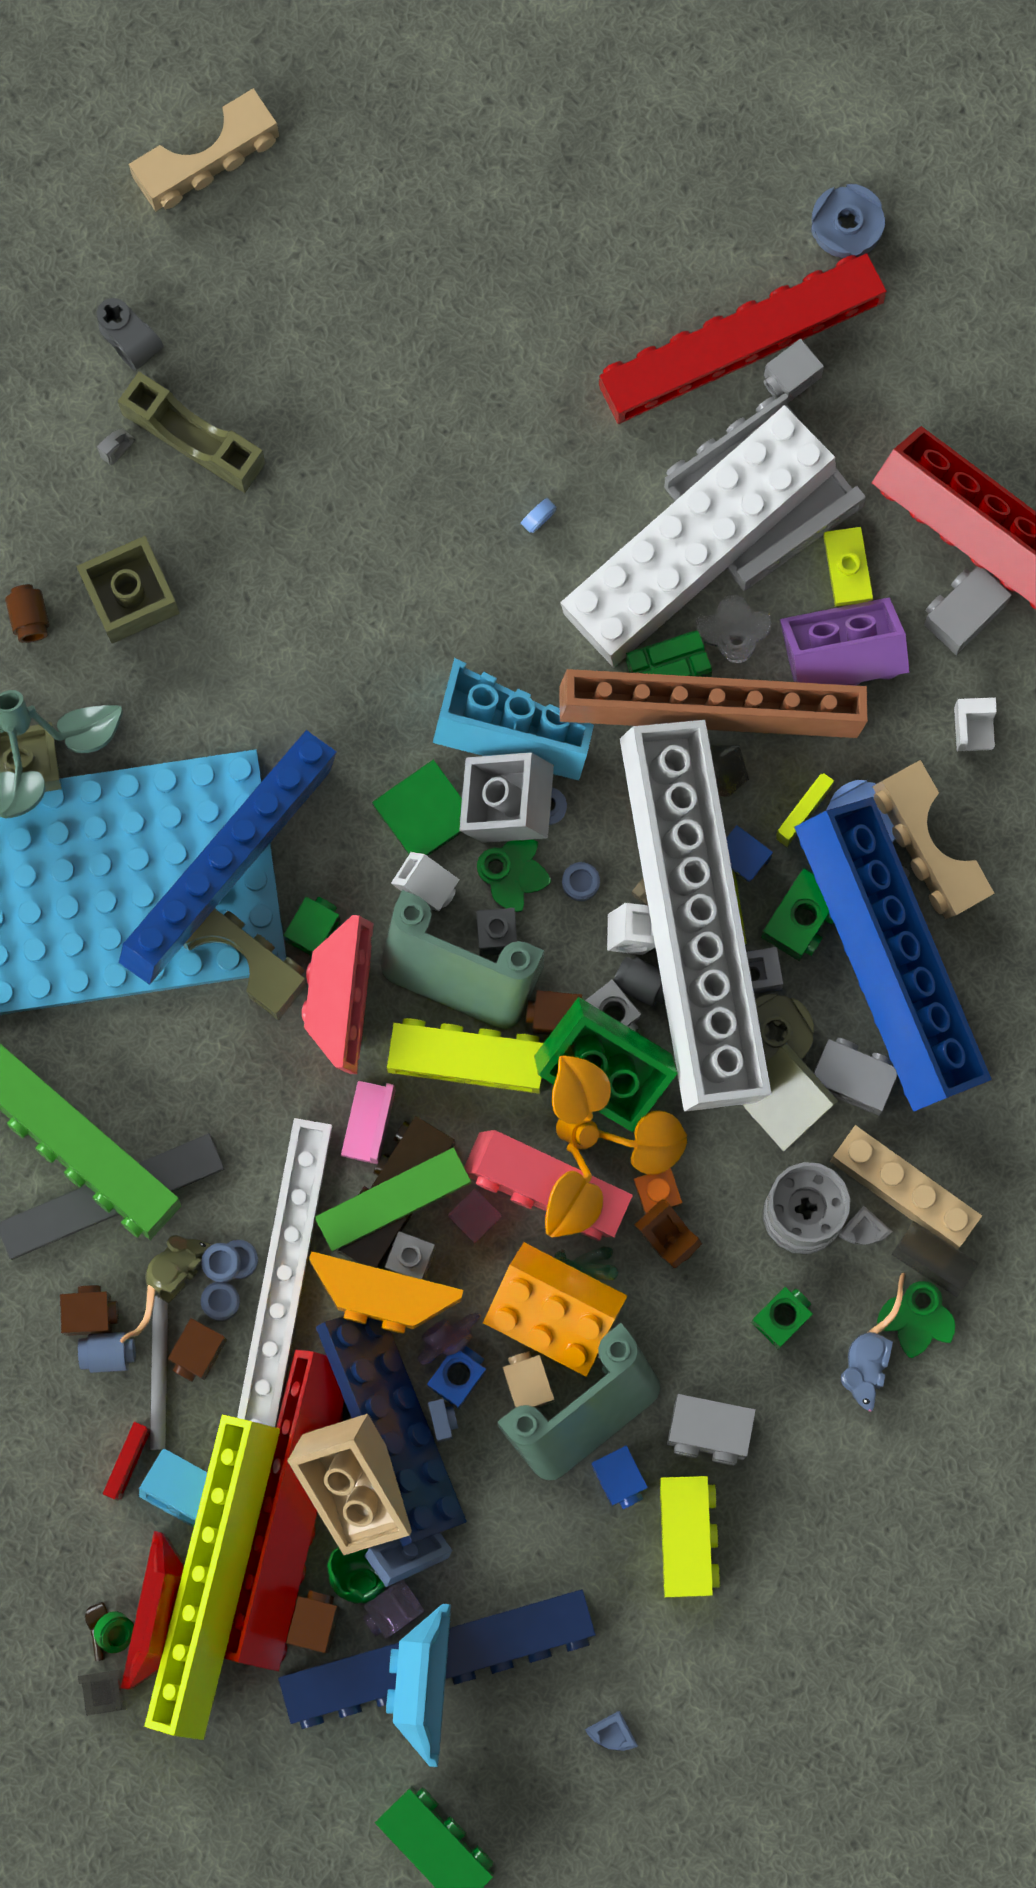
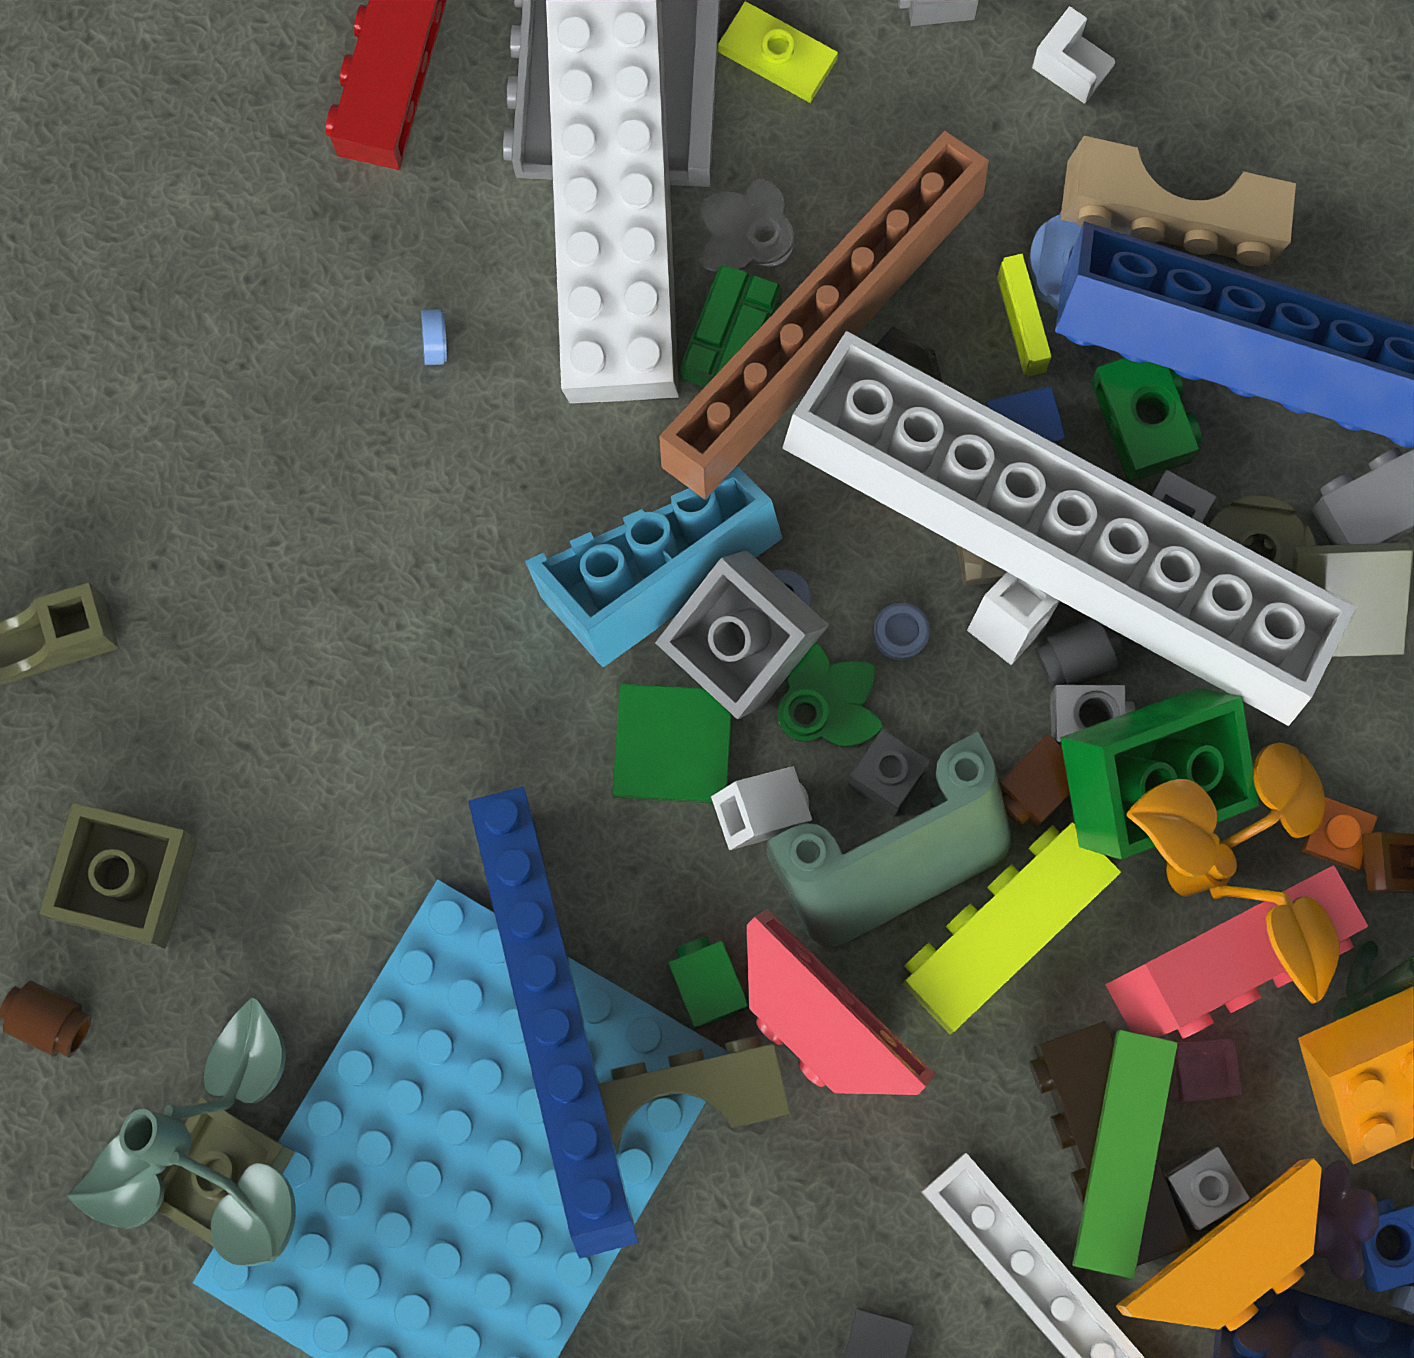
camera: 50 degrees left, 0 degrees up
(368, 1122) = (995, 1105): bright pink panel -> none
(846, 644) = (869, 120): medium lavender slope -> none

